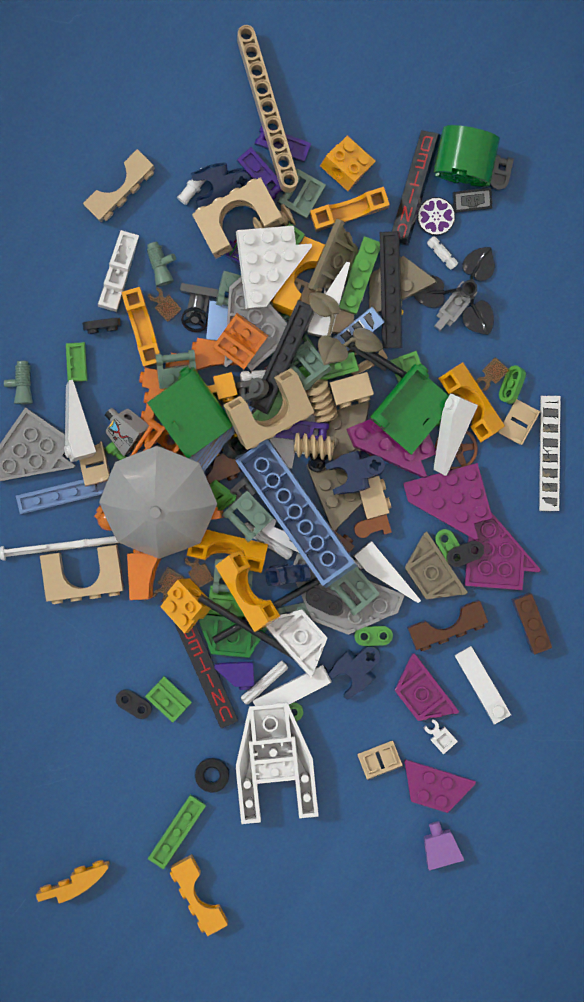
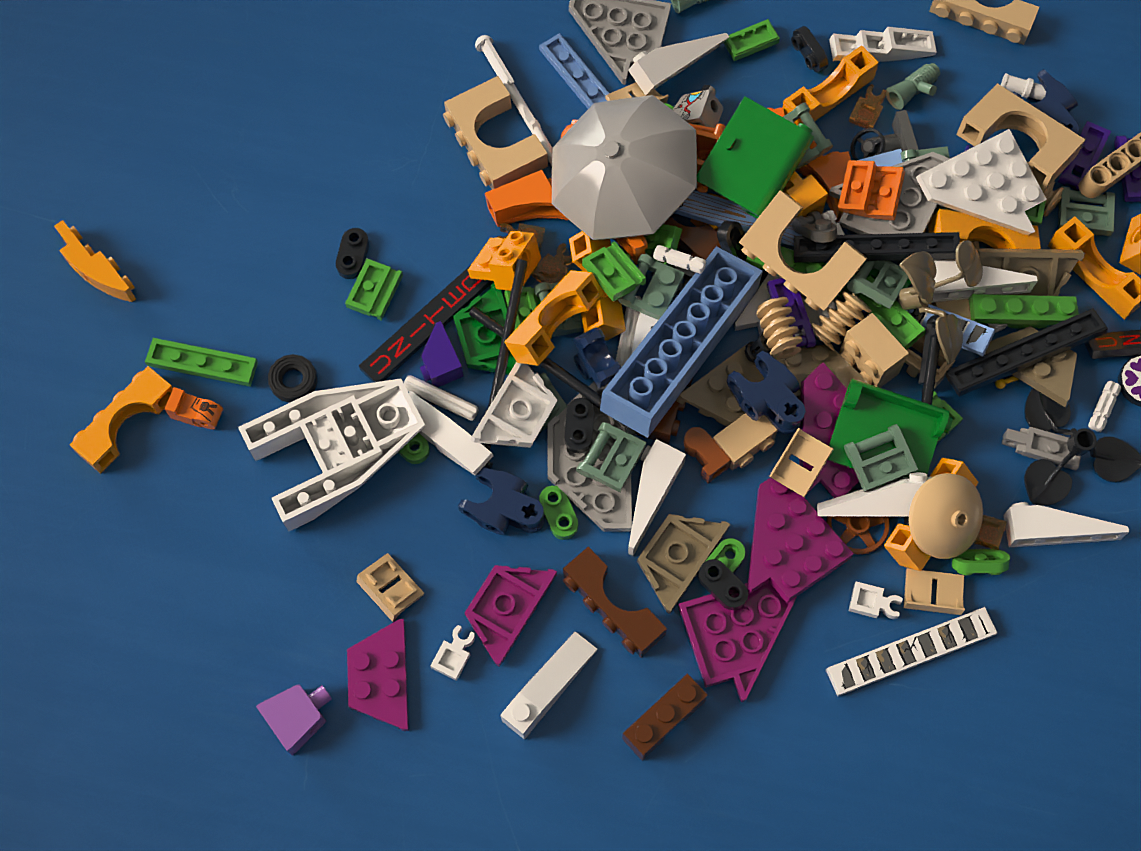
camera: 70 degrees right, 20 degrees down
(210, 847) = (193, 409): none -> orange leg
(229, 538) = (614, 271): none -> bright green plate
(239, 491) = (679, 259): none -> white axle
(414, 478) = (808, 450): none -> tan piece
(433, 420) = (884, 466): none -> sand green plate
(480, 397) = (936, 512): none -> tan dish
(505, 336) = (1048, 526): none -> white slope
(508, 464) = (869, 601): none -> white plate

